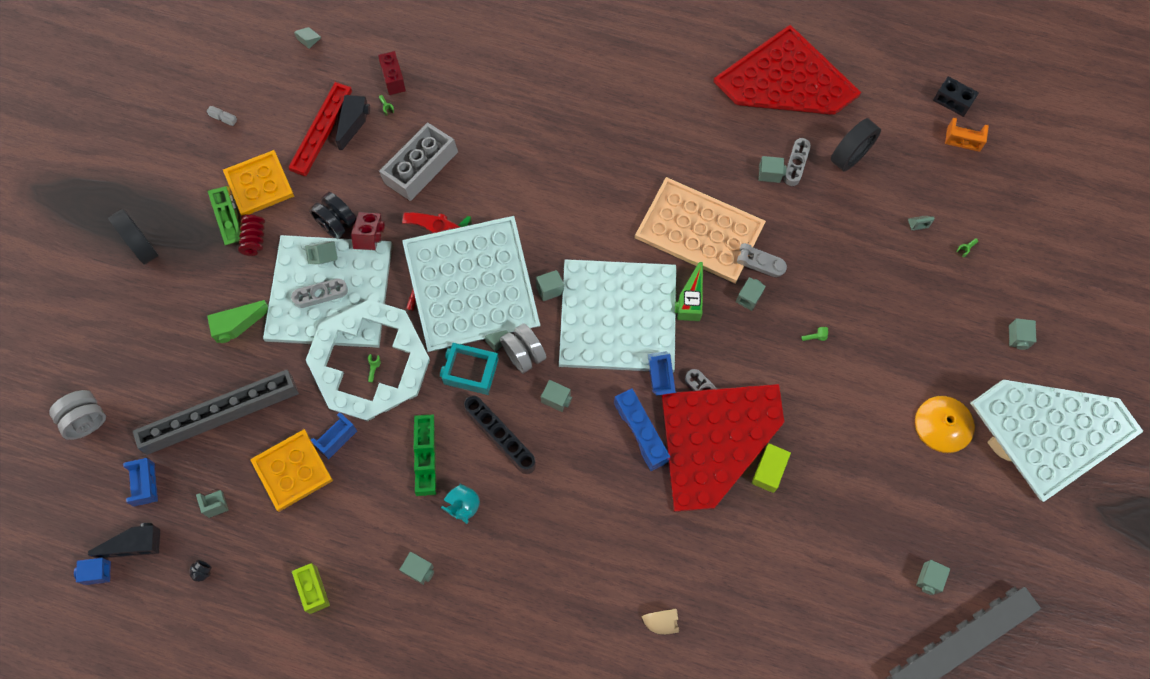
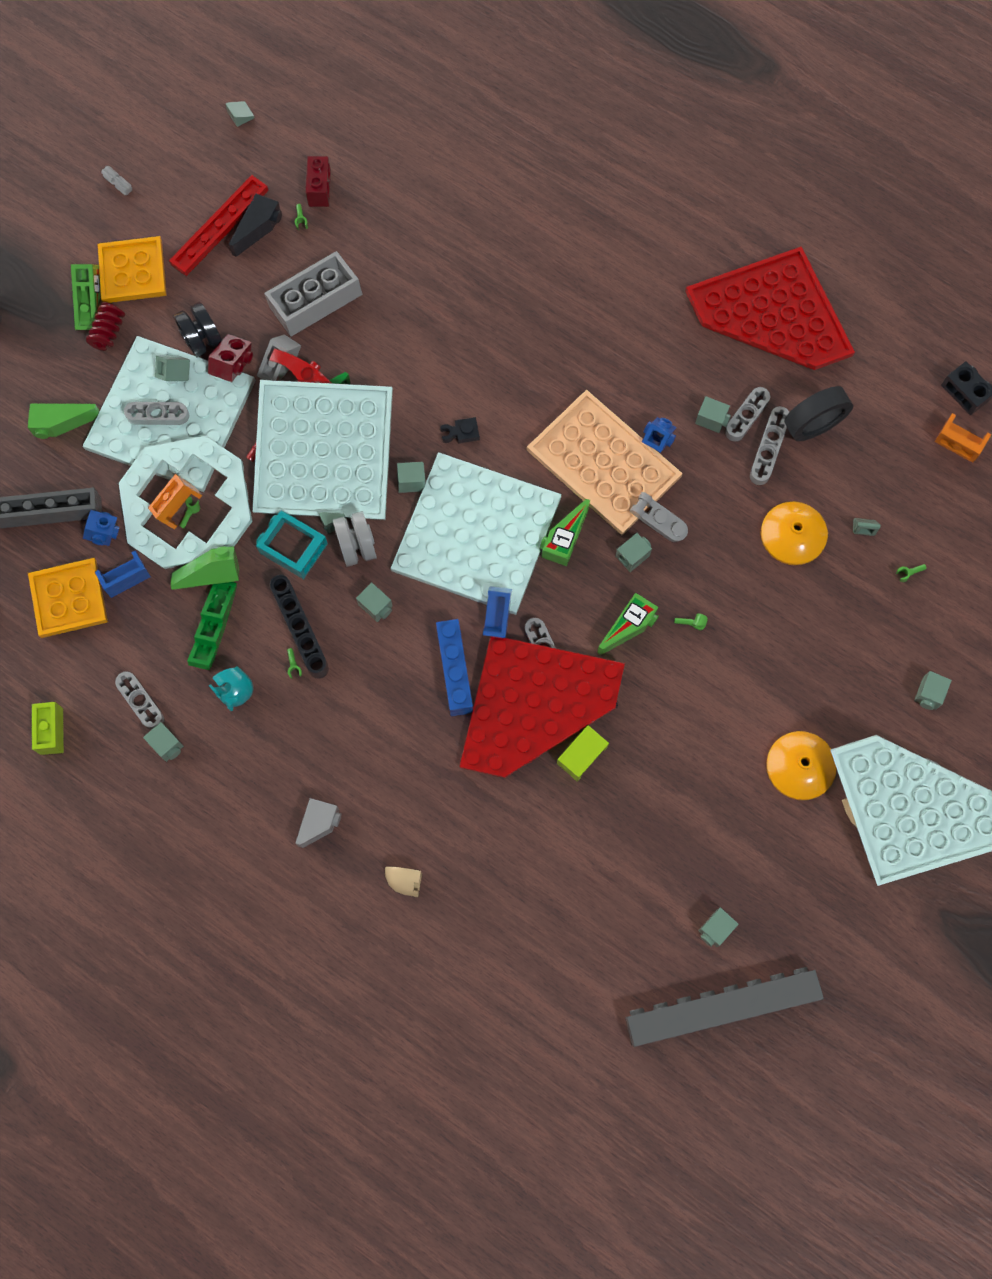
camera: 20 degrees right, 5 degrees up
(302, 402) = (100, 528): none -> blue brick
(356, 360) = (171, 499): none -> orange panel
(374, 525) = (130, 699): none -> light grey beam
(405, 231) = (274, 371): none -> light grey slope
(406, 409) = (212, 567): none -> bright green slope
(504, 467) = (293, 665): none -> bright green hand
(574, 593) = (317, 822): none -> light grey slope
(579, 236) = (464, 430): none -> black plate
(737, 201) = (654, 431): none -> blue brick
(770, 348) = (632, 622): none -> bright green slope
(823, 181) = (769, 445): none -> light grey beam
(865, 251) = (791, 545): none -> light orange dish

